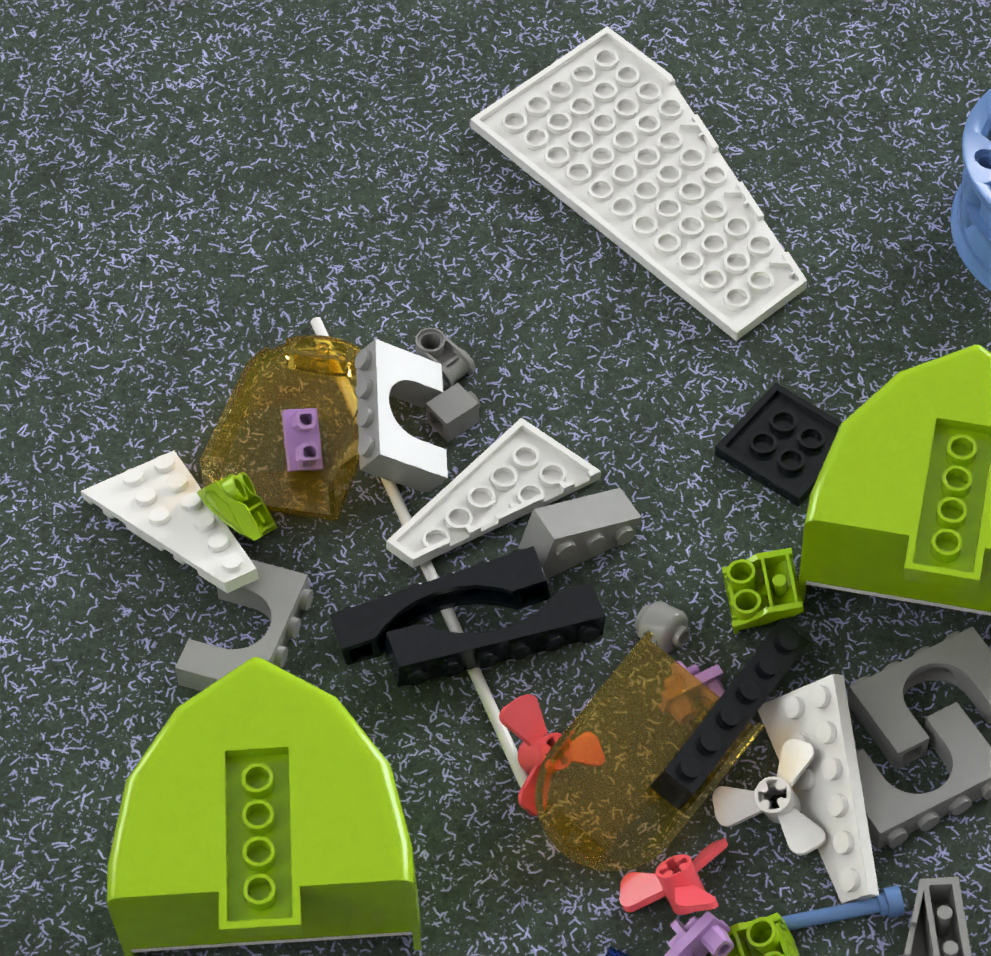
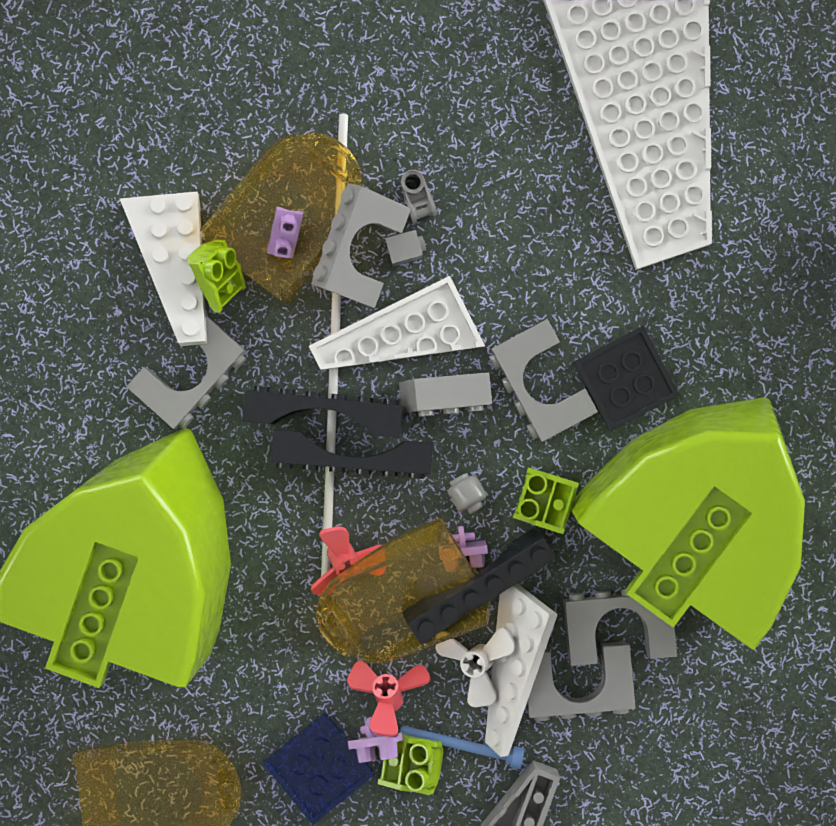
camera: 25 degrees right, 35 degrees up
(711, 515) = (512, 359): none -> light grey arch

